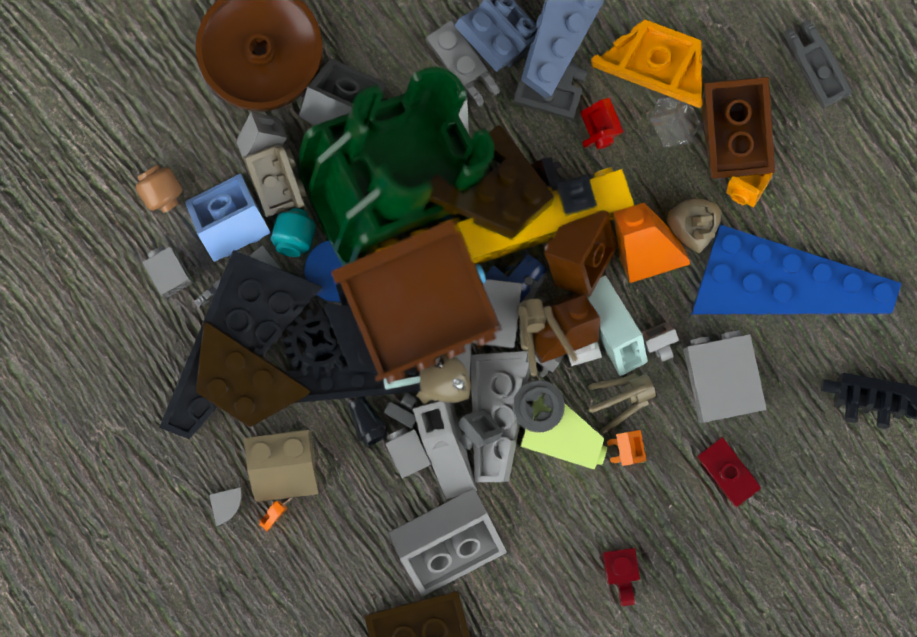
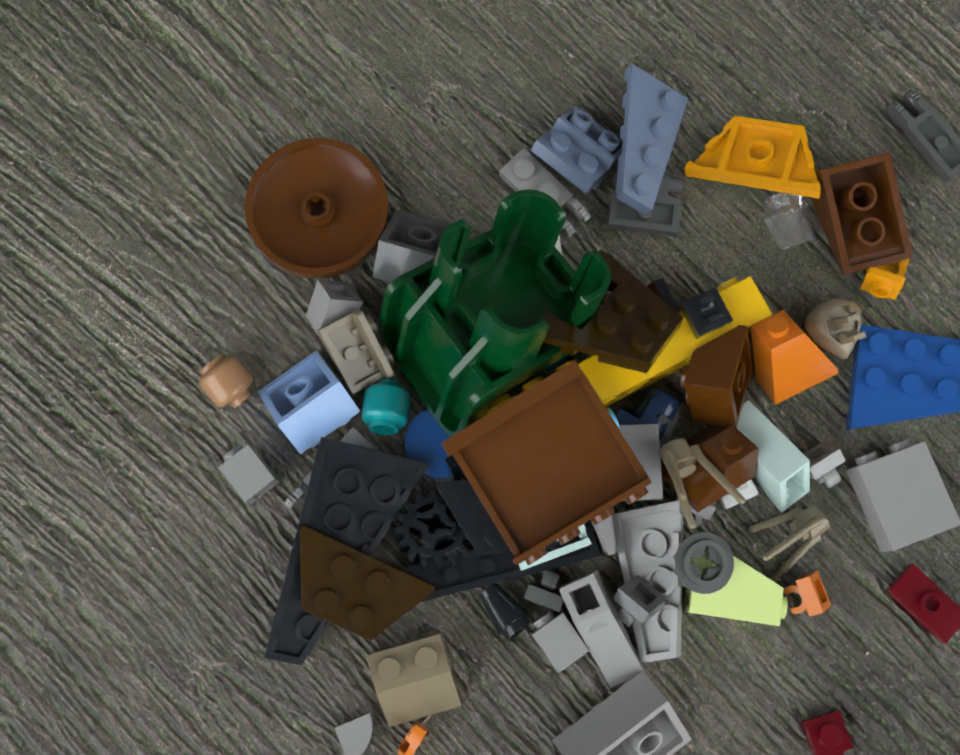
camera: 10 degrees left, 5 degrees down
(444, 381) = (591, 552): dark tan piece -> none
(601, 124) = (709, 234): red bracket -> none

